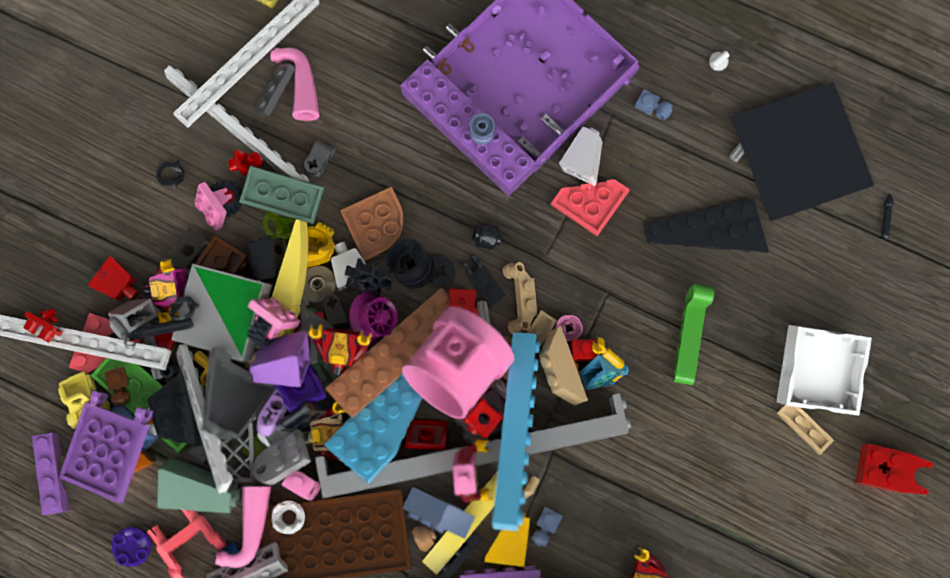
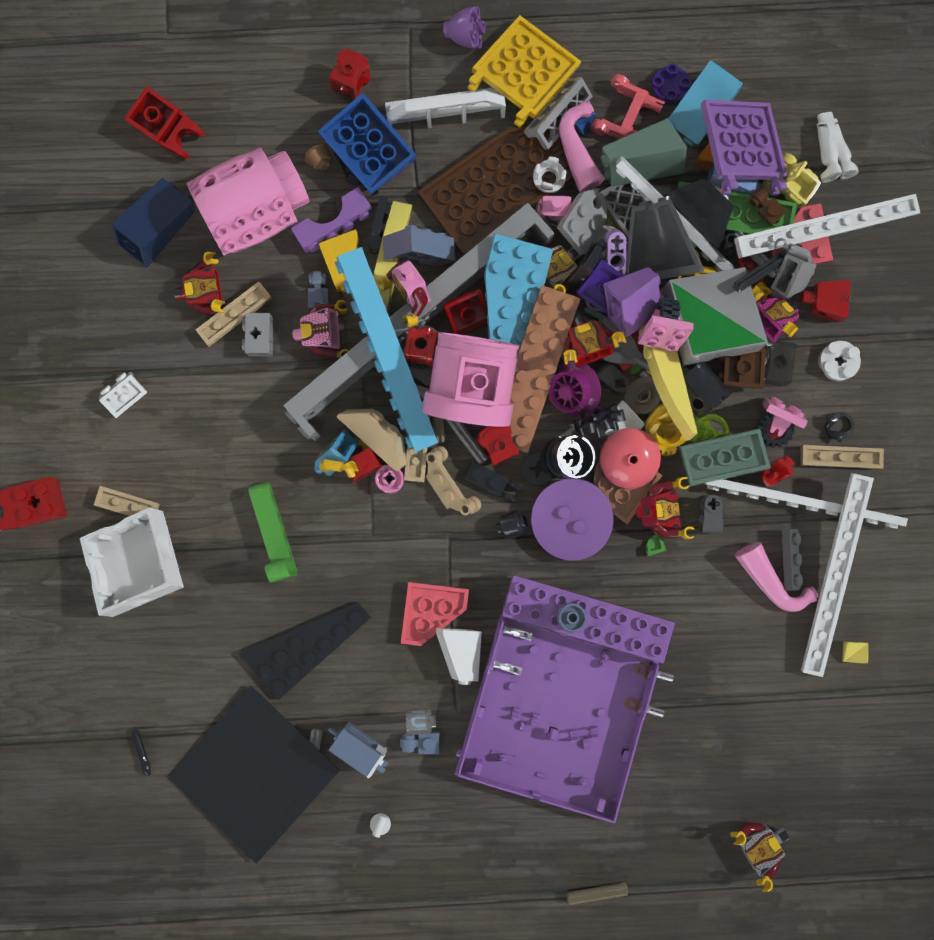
camera: 150 degrees right, 5 degrees up
(27, 409) = (834, 150): none -> white piece
(35, 322) = (868, 225): red hips -> none
(51, 491) = (792, 118): medium lavender arch -> none
(104, 517) = (711, 84): none -> medium azure slope
(136, 237) = (830, 367): none -> white plate
(178, 304) = (758, 298): black piece -> none
(184, 148) = (841, 457): none -> tan plate
(357, 182) = (661, 510): none -> torso
(366, 245) = (616, 457): none -> coral dish
(378, 160) = (654, 545): none -> bright green tile
(424, 537) = (421, 220): medium nougat cone -> none
(434, 213) = (572, 519): none -> medium lavender brick
(531, 486) = (349, 318): tan arm -> none
(561, 487) = (321, 330): none -> torso
(619, 502) = (264, 343): none -> light grey brick
(628, 545) = (234, 313): none -> tan plate
(646, 120) = (420, 722): none -> clear brick
(707, 123) = (358, 750): none -> sand blue piece
(764, 526) = (122, 394): none -> white bracket

